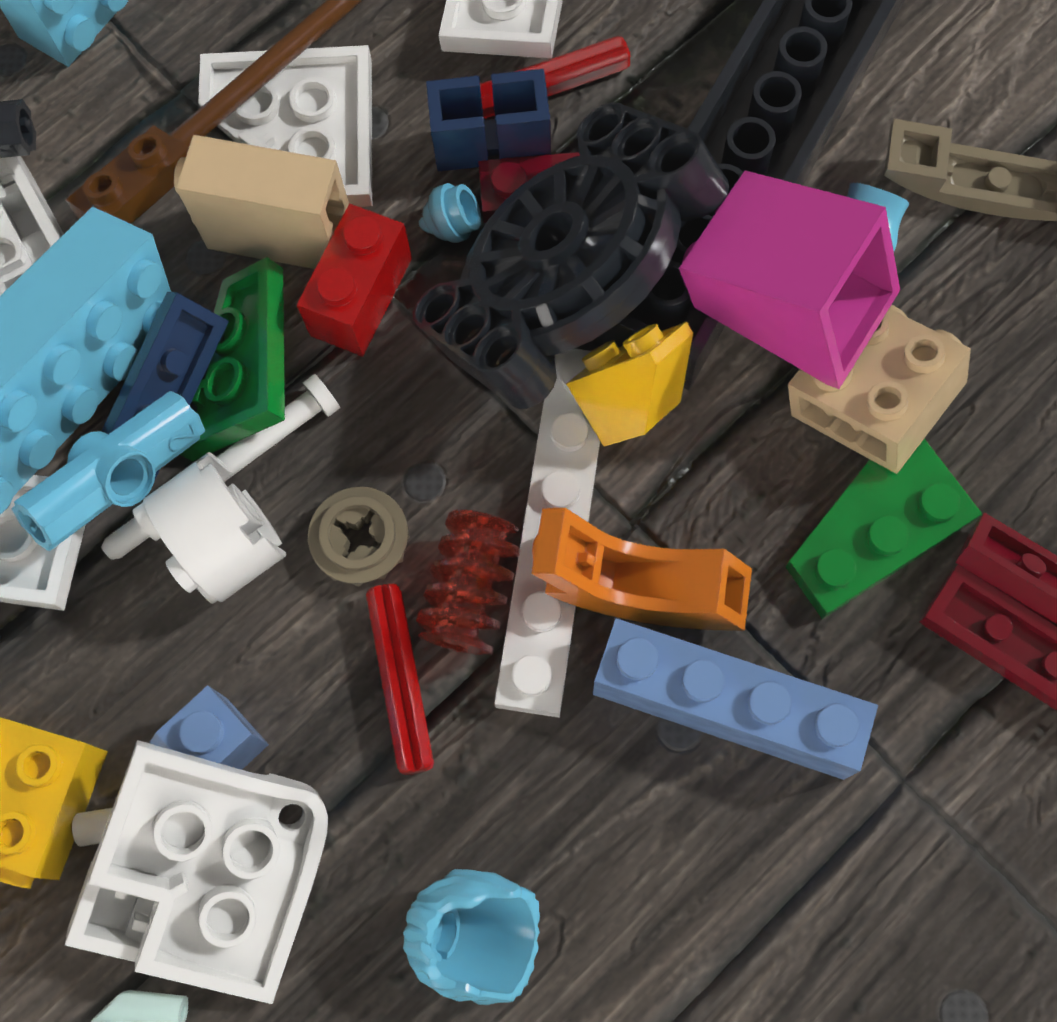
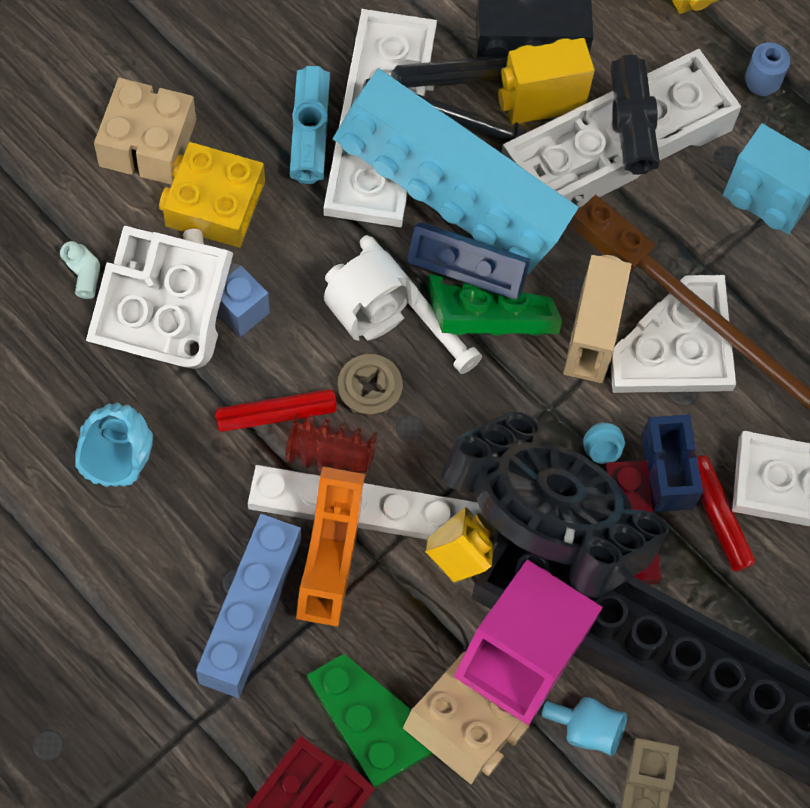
camera: 80 degrees right, 5 degrees down
(108, 470) = (405, 231): medium azure piece -> none
(355, 279) = (547, 378): red brick -> none

